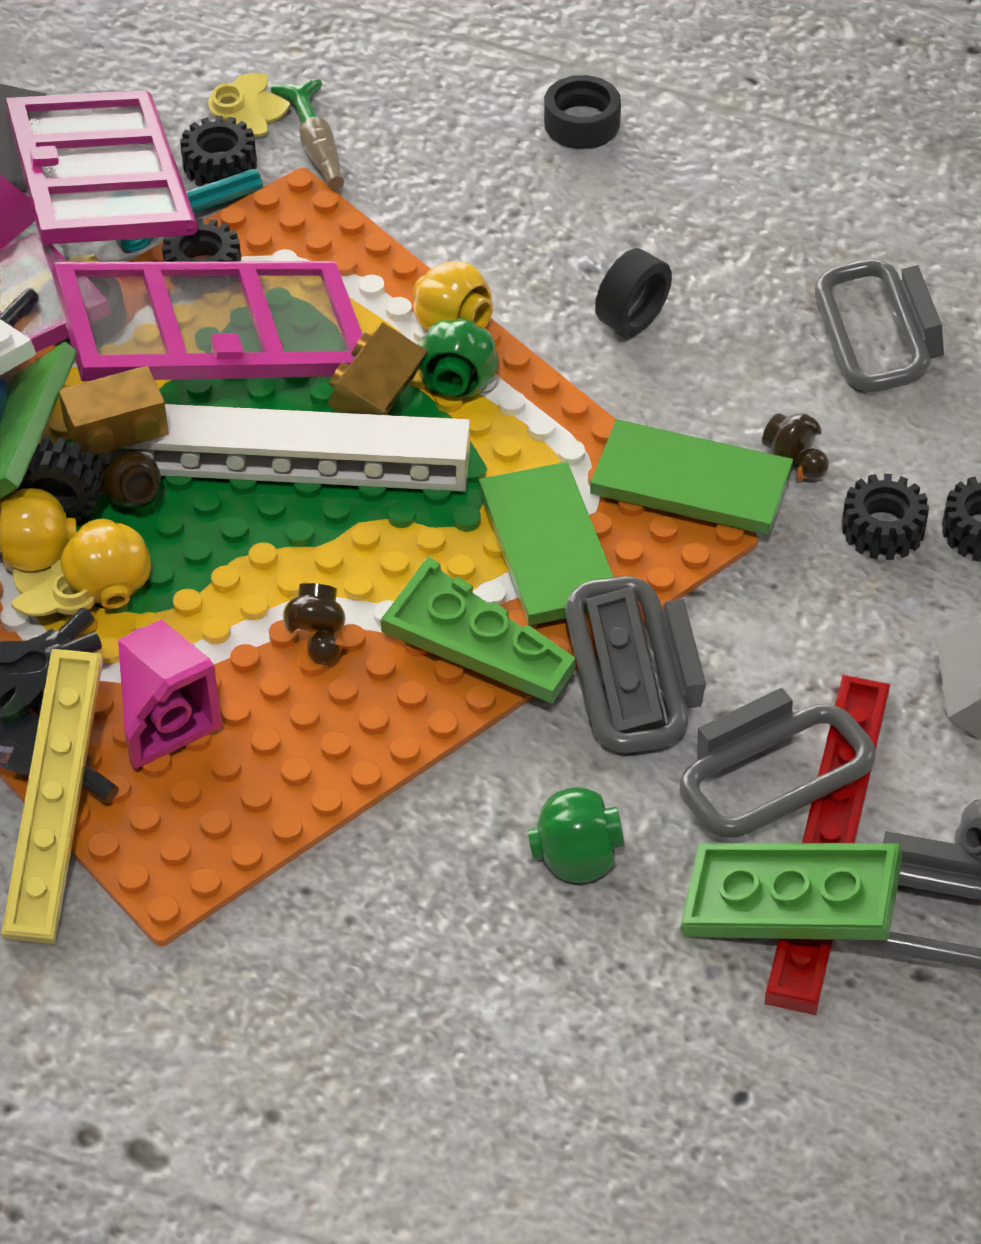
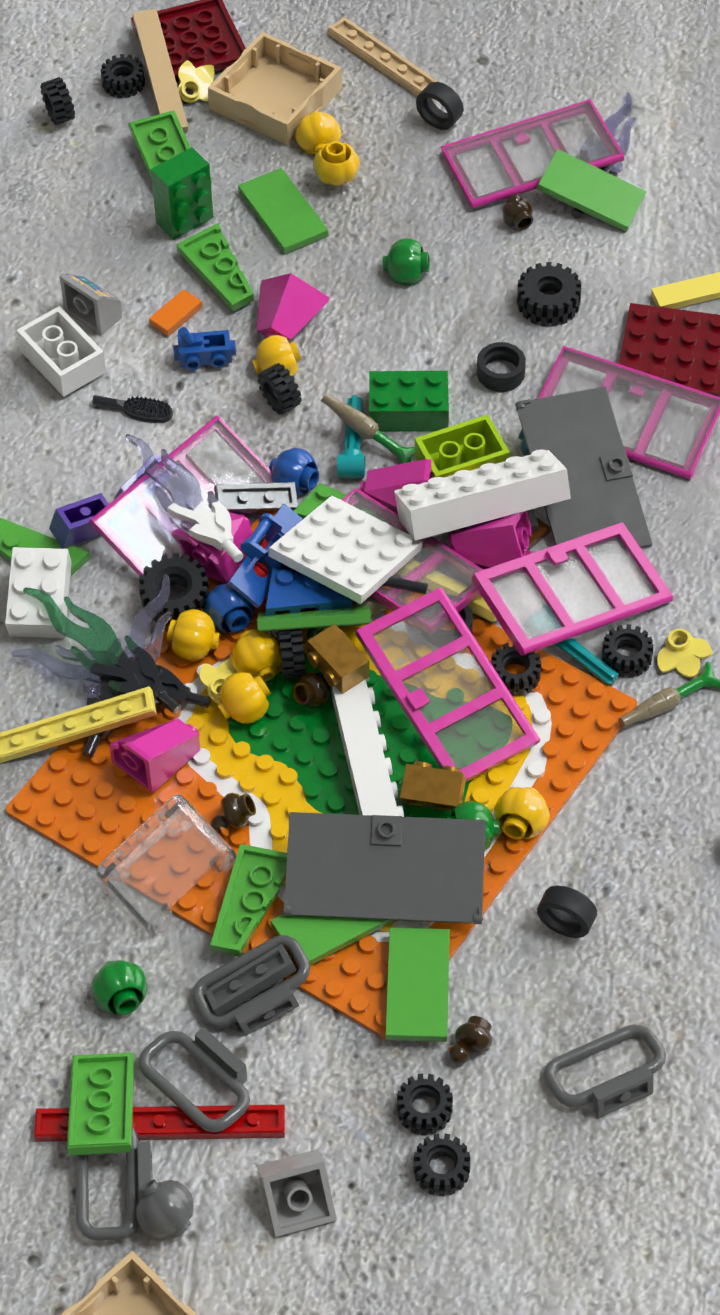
camera: 75 degrees right, 5 degrees up
(388, 721) = (162, 863): none -> clear windscreen
(501, 453) = (385, 868): none -> dark grey door

